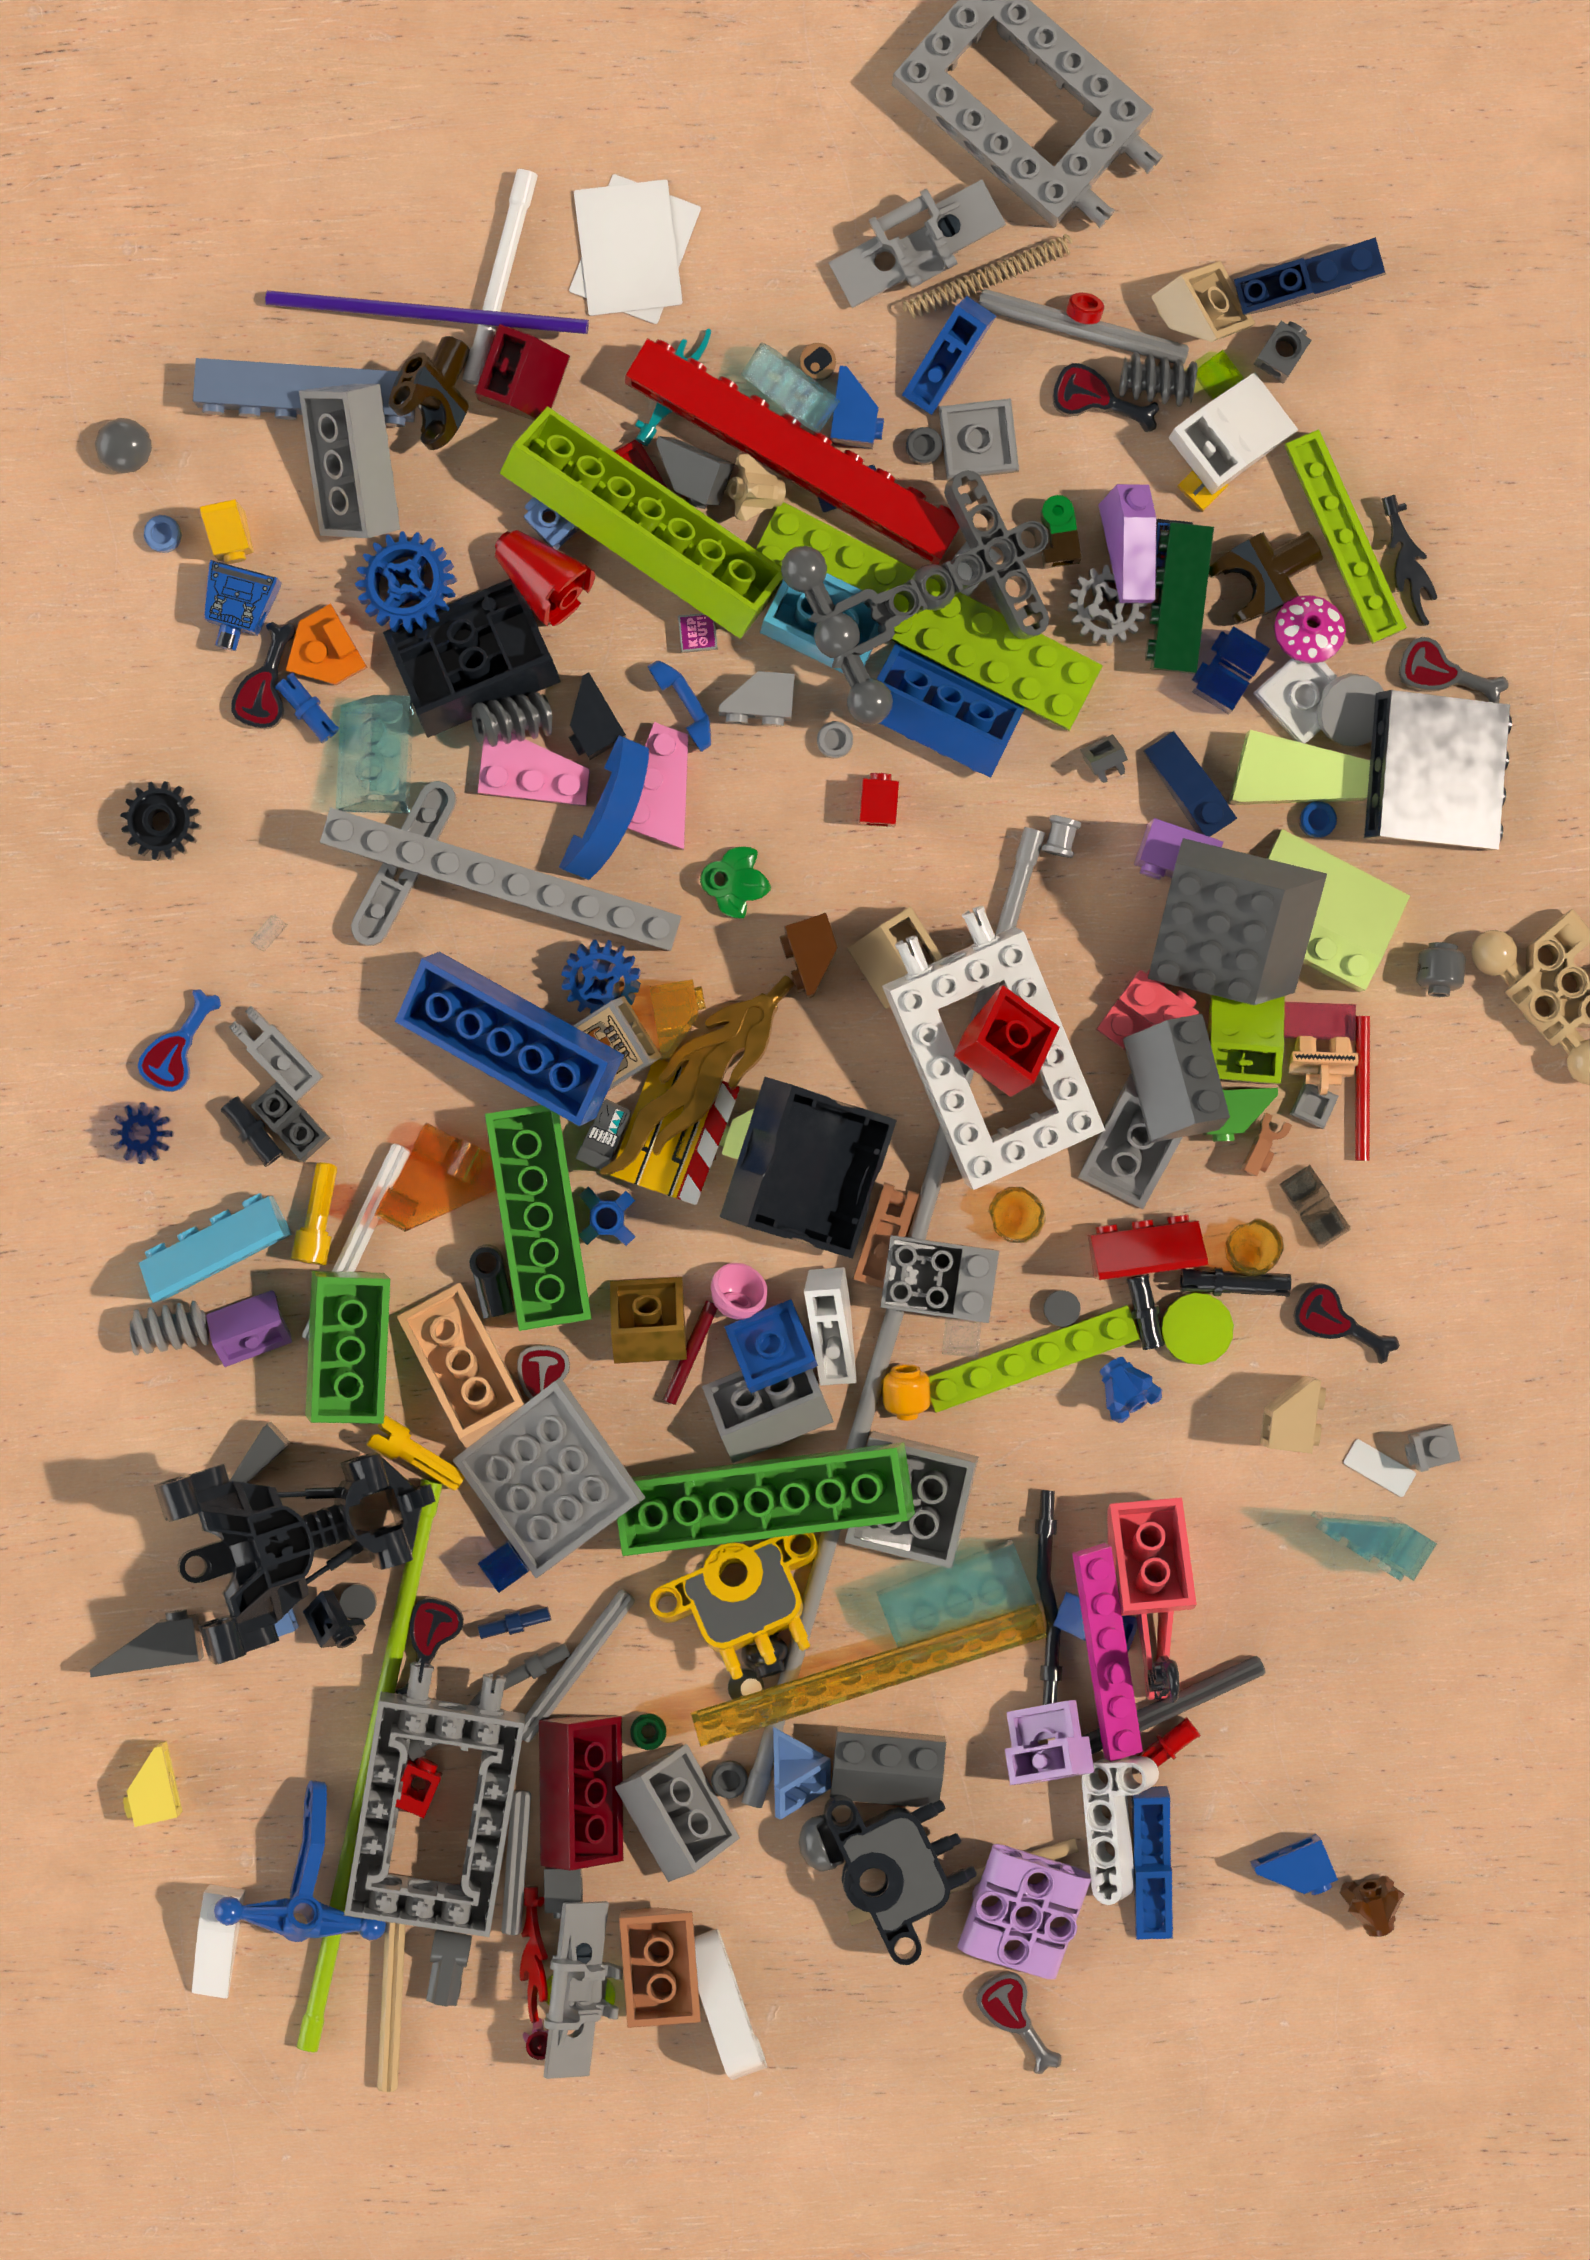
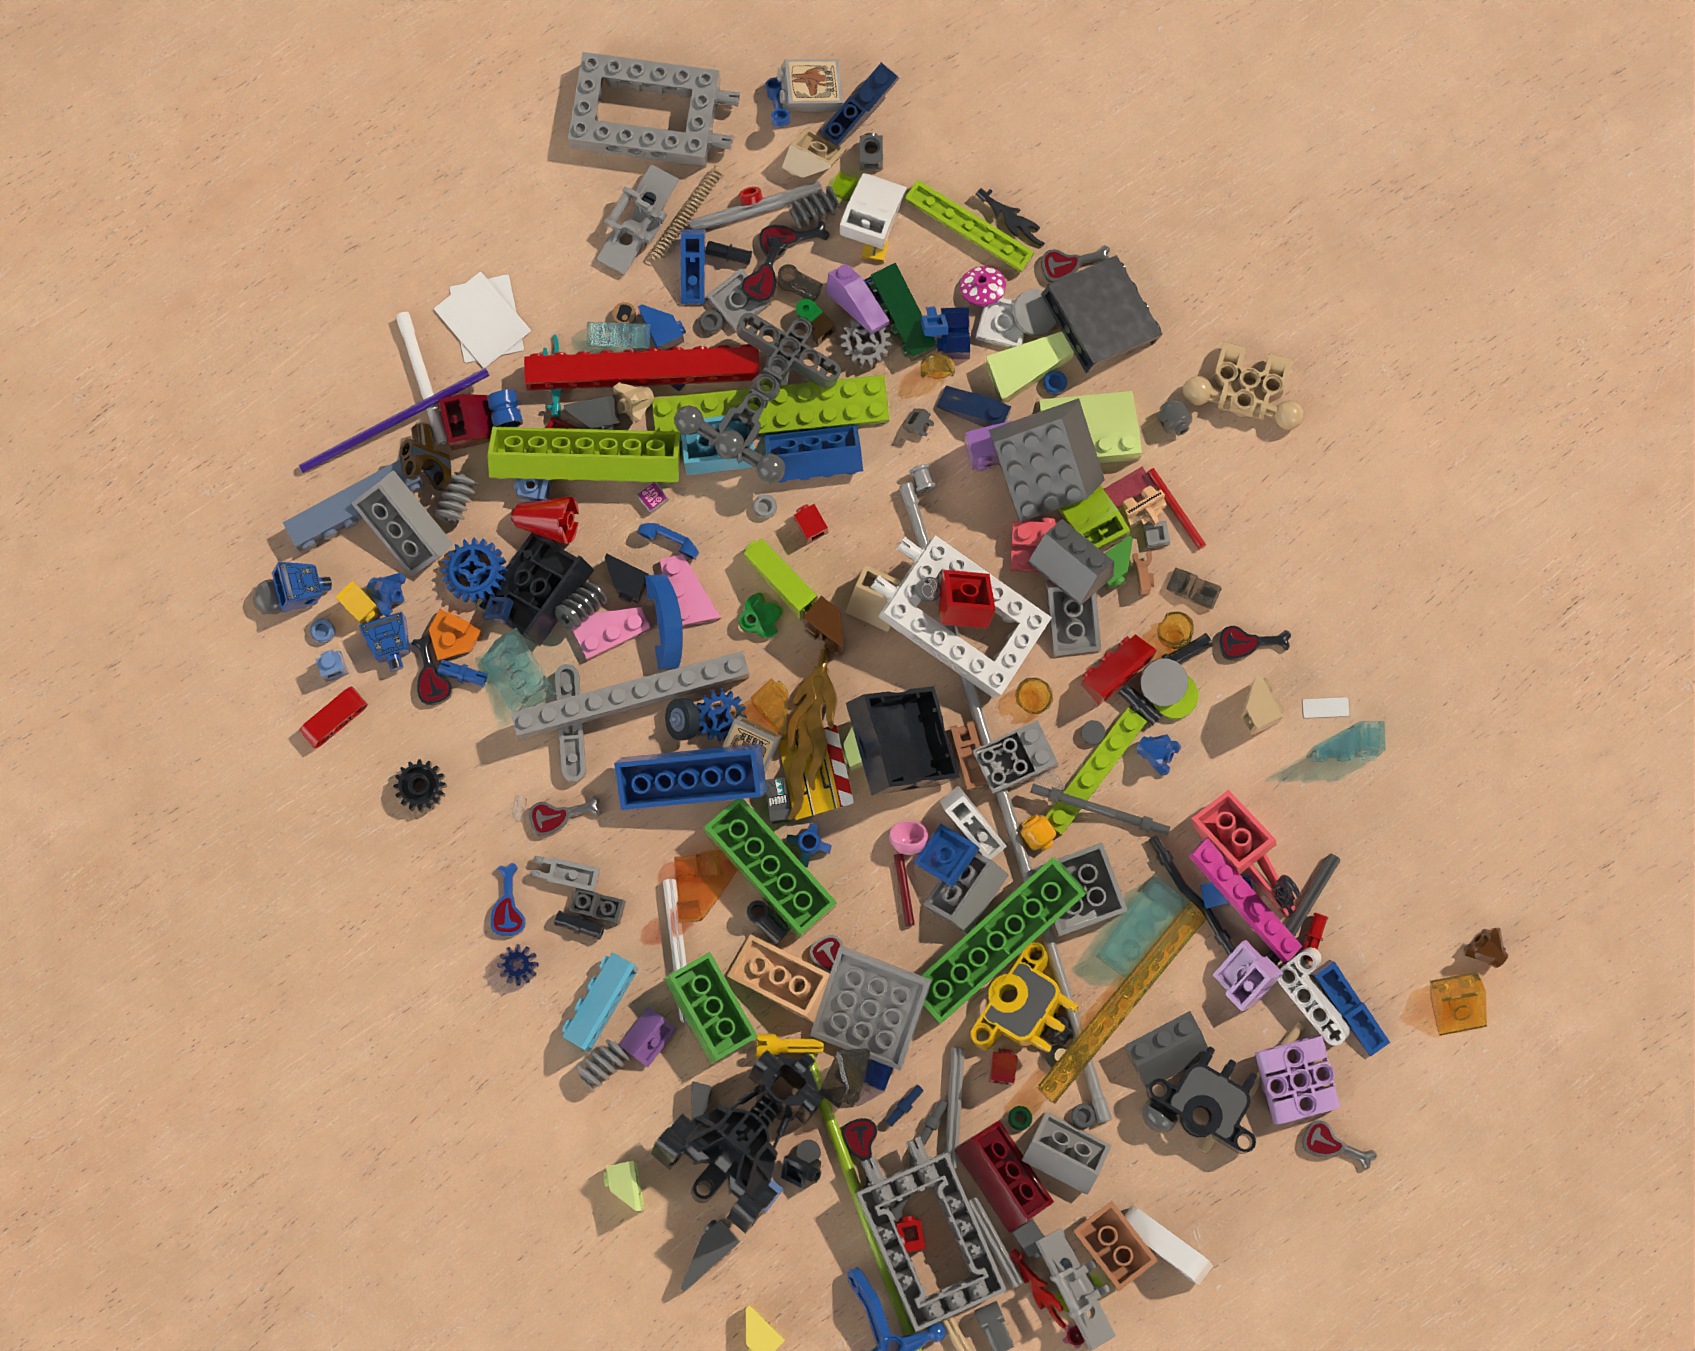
camera: 30 degrees left, 10 degrees down
(103, 1497) = (625, 1183): none -> yellowish green slope
(105, 658) = (333, 717): none -> red beam
(145, 588) = (332, 665): none -> medium blue brick
(165, 456) = (298, 585): none -> torso
(274, 537) = (386, 591): none -> blue rock
(297, 970) = (549, 820): none -> flat silver piece
(312, 1240) = (651, 962): yellow piece -> none
(402, 655) = (498, 609): none -> dark blue tile
(442, 470) = (455, 498): none -> light grey piece
(459, 1549) = (846, 1077): none -> clear smoke slope
(548, 953) = (682, 719): none -> black wheel
(579, 390) = (504, 406): none -> blue wheel
(648, 1320) = (869, 886): pearl gold slope -> none
(666, 1659) = (1003, 1067): none -> dark red slope
(761, 697) = (710, 508): light grey slope -> none
(792, 848) = (780, 577): none -> lime slope
(798, 1774) = (1119, 1084): medium blue slope -> none
(959, 1360) = (1145, 823): none -> dark grey bar
(967, 998) = (928, 589): none -> dark grey tile
(1006, 367) = (728, 252): none -> black axle
(1022, 440) = (762, 284): none -> black piece
(1075, 473) = (801, 284): none -> clear smoke piece
(1178, 699) = (937, 366): none -> clear yellow hair
(1193, 1305) = (1163, 682): none -> light grey tile
(1208, 642) = (934, 324): none -> blue plate
(1211, 186) = (780, 116): none -> blue bar
(1262, 207) = (810, 85): none -> brick
(1268, 571) = (940, 270): dark brown connector -> none
(1290, 1947) = (1458, 1003): none -> clear yellow slope
(1299, 1866) = (1433, 954): blue slope -> none
(1432, 1448) = (1347, 677): light grey bracket -> none

